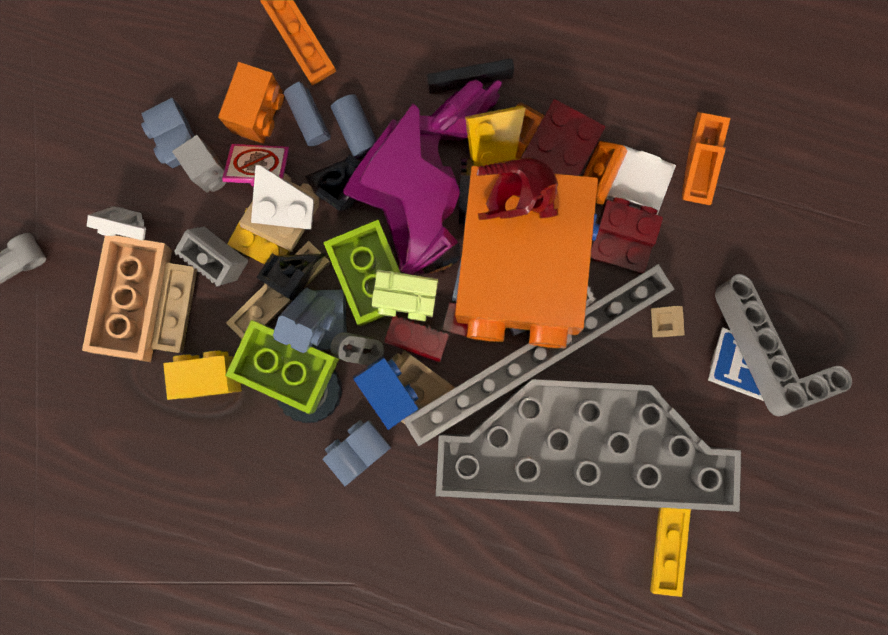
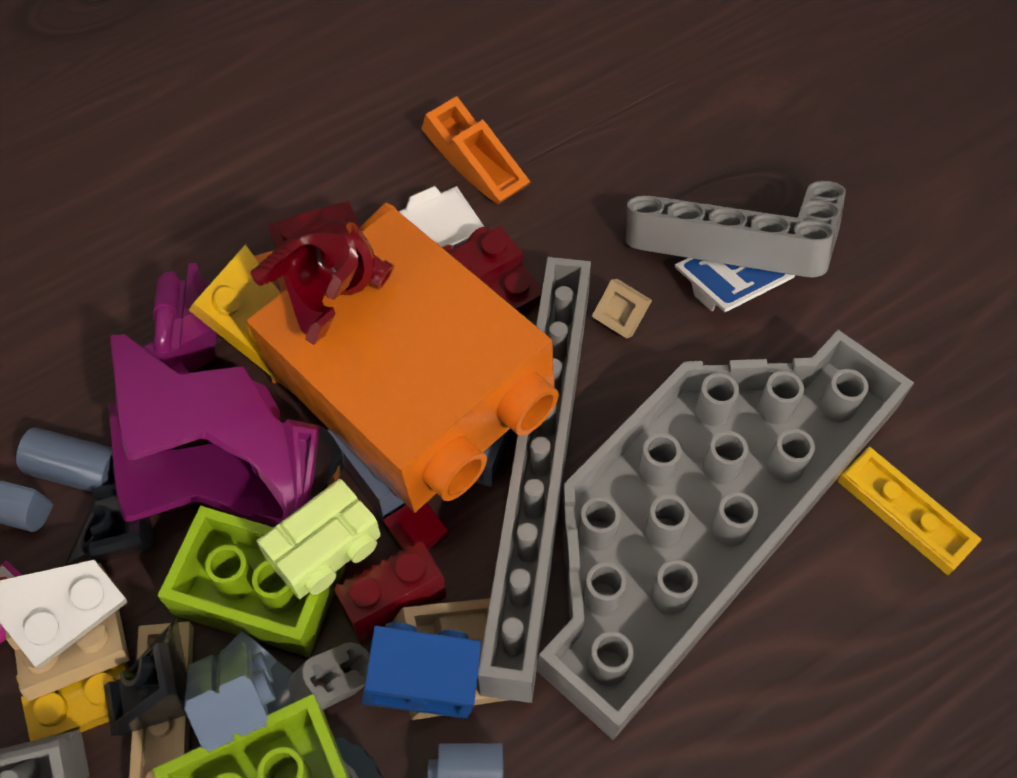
camera: 55 degrees left, 25 degrees down
(460, 77) = (135, 314): black tile -> none
(466, 165) = (262, 372): black tile -> none

